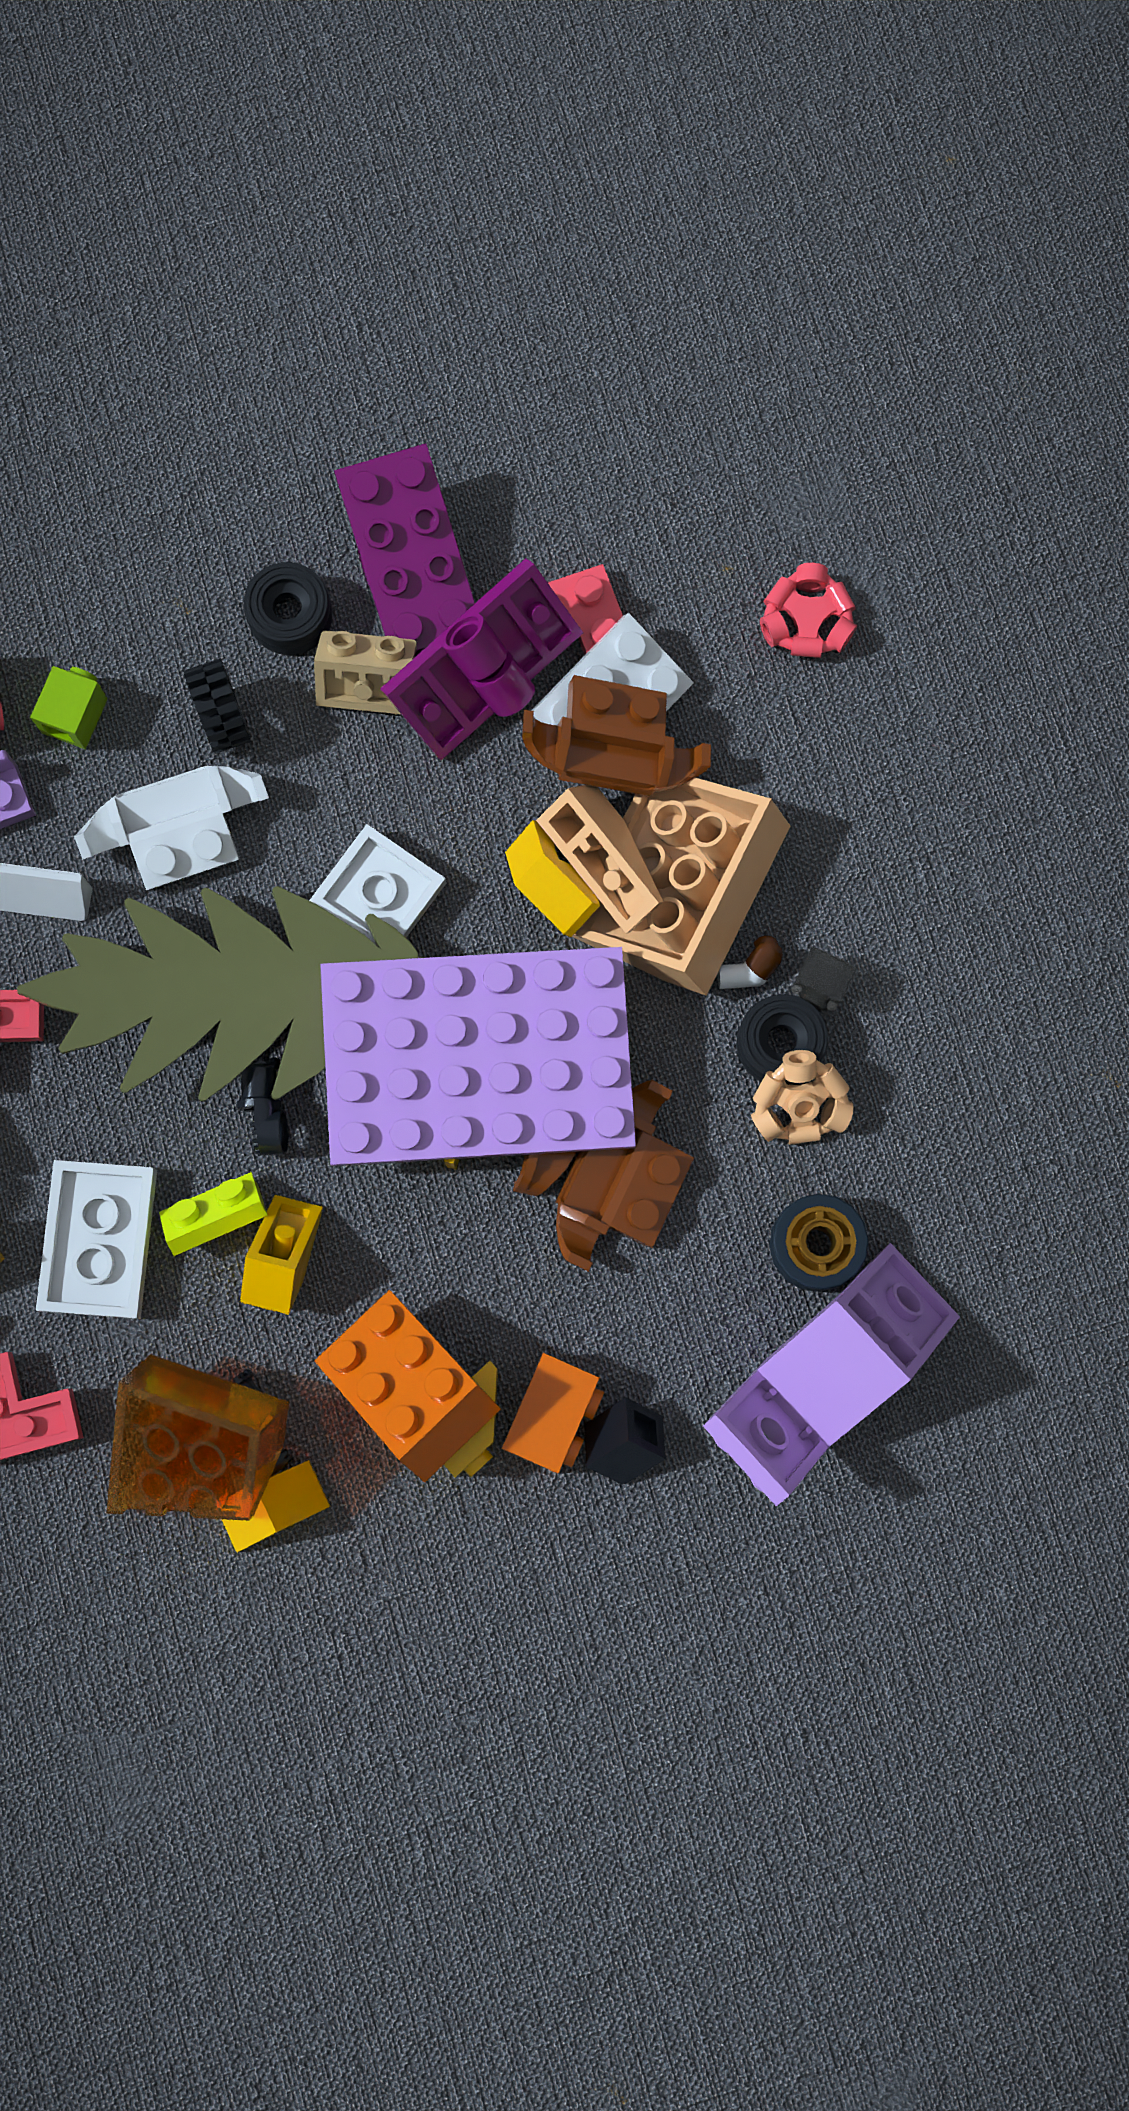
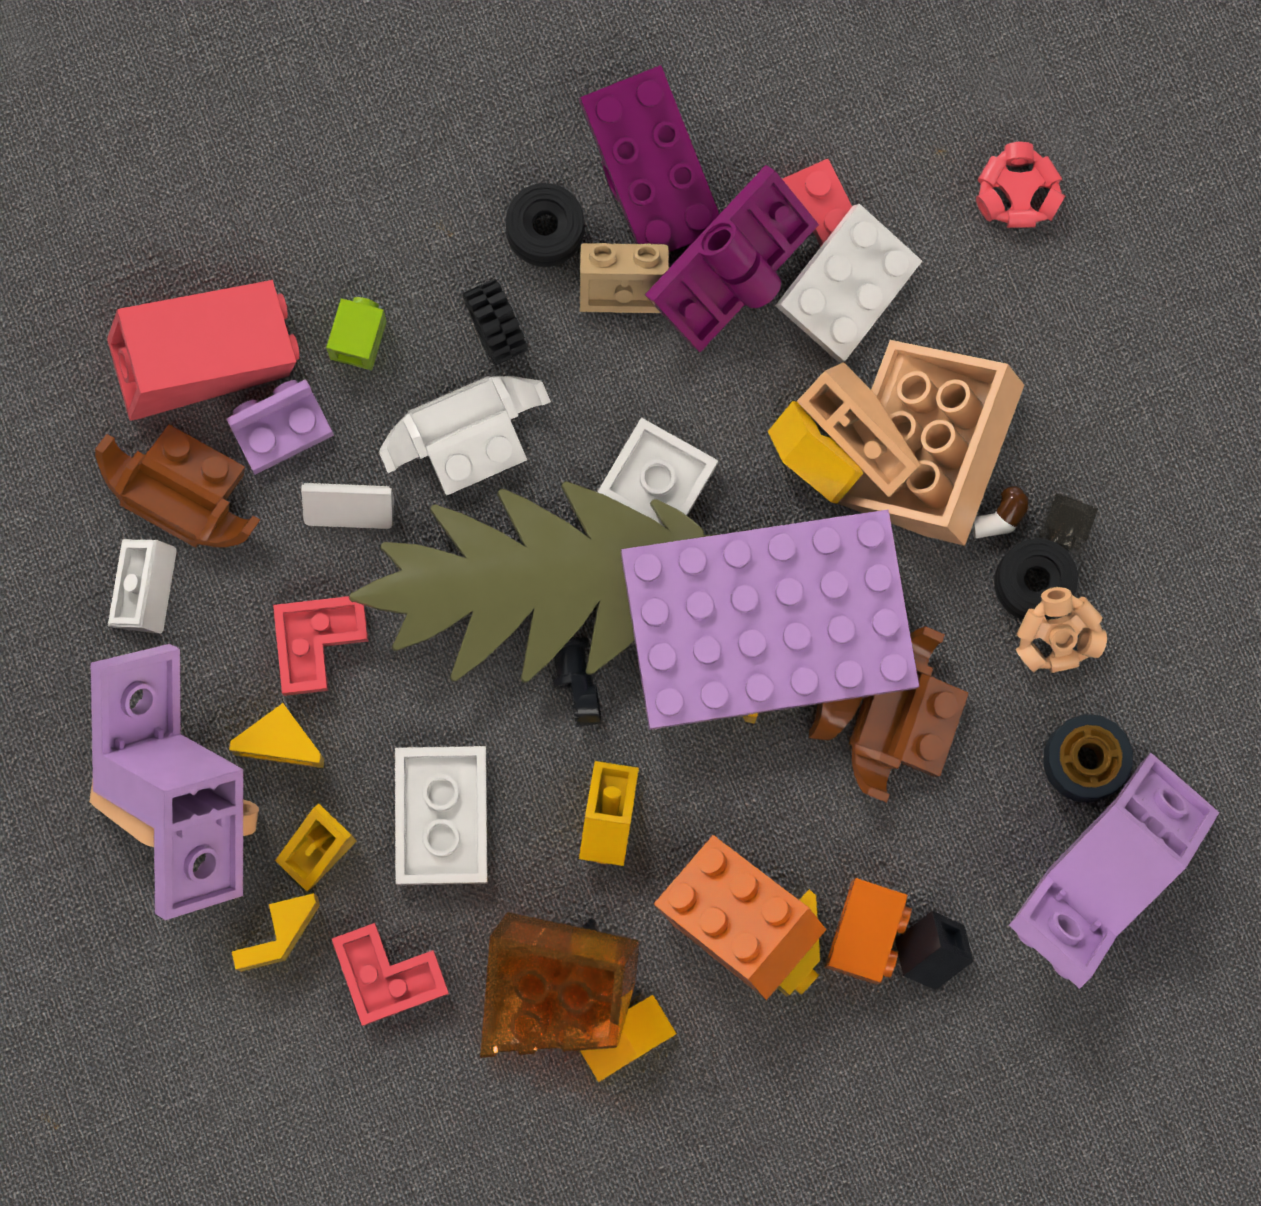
camera: 10 degrees left, 0 degrees up
(212, 1213) = (543, 782): neon yellow plate -> none
(614, 740) = (860, 322): dark orange plate -> none

